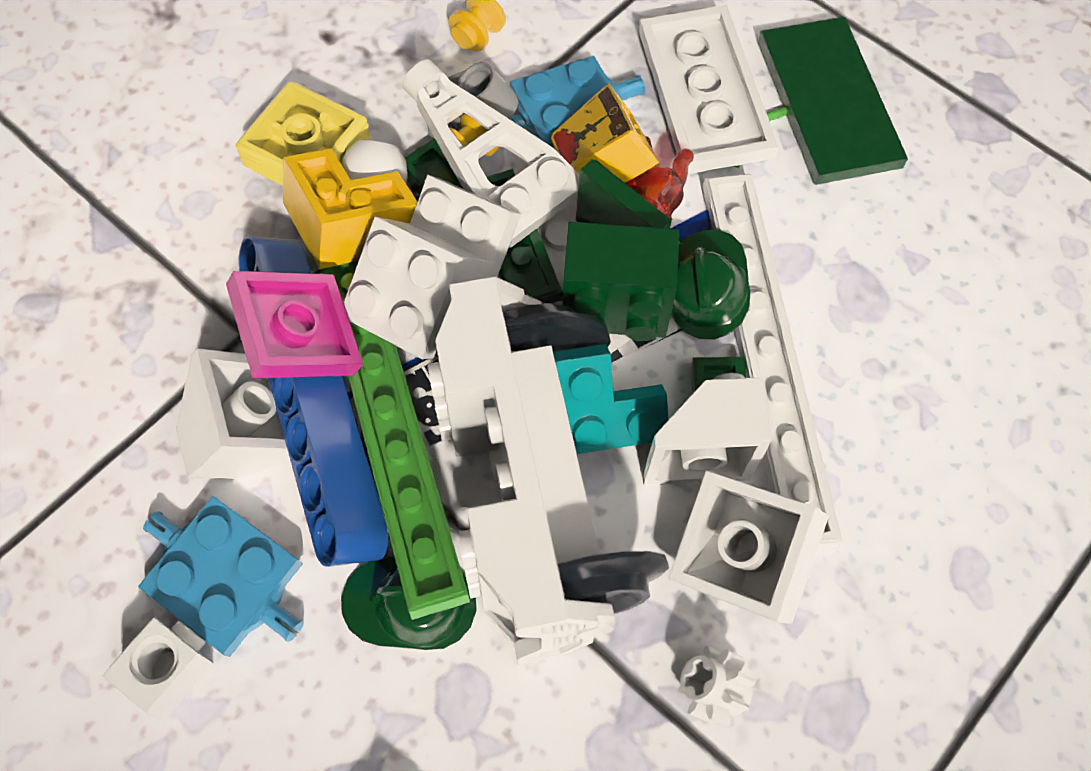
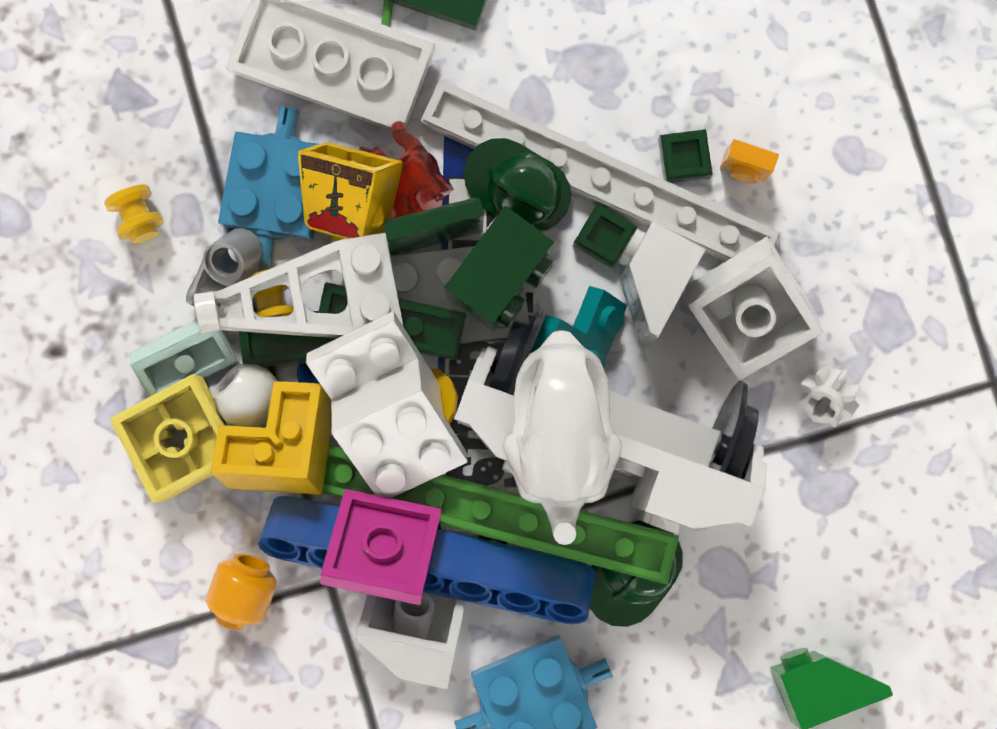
camera: 60 degrees left, 20 degrees up
(192, 258) = (241, 591): none -> light orange head
(386, 119) = (181, 355): none -> light aqua slope
(494, 369) = (562, 432): none -> white piece
(844, 412) = (685, 156): none -> dark green tile
(885, 465) = (748, 162): none -> light orange plate

